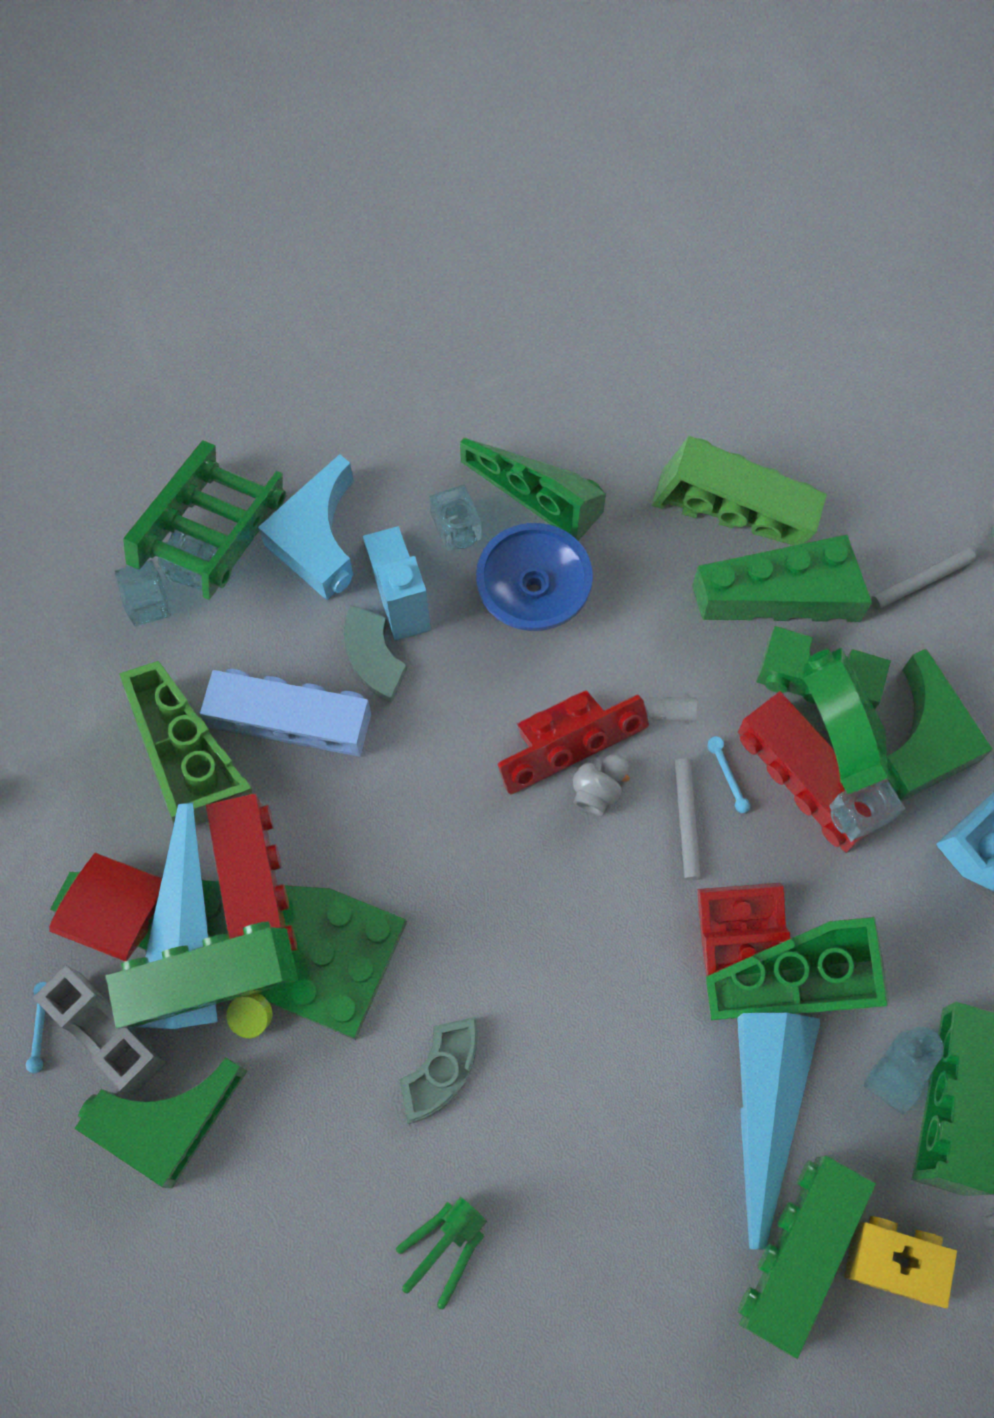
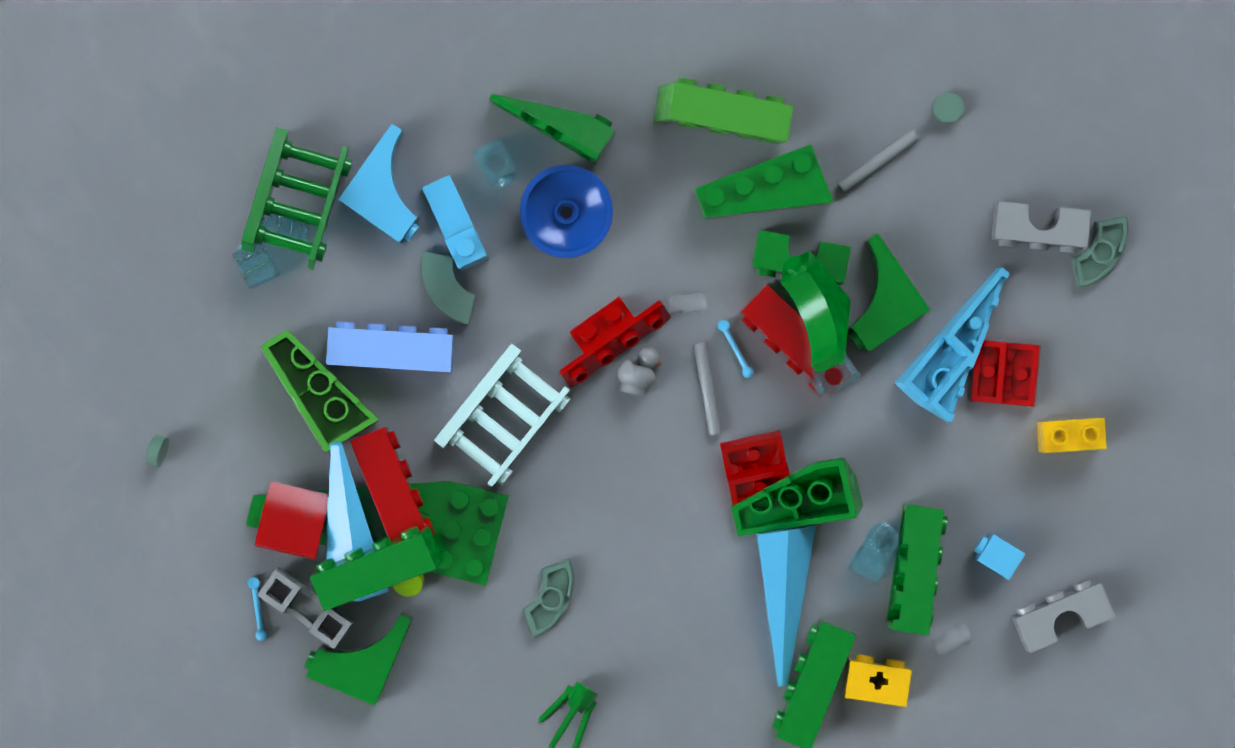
camera: 10 degrees left, 20 degrees up
(407, 774) = (492, 387): none -> light aqua fence

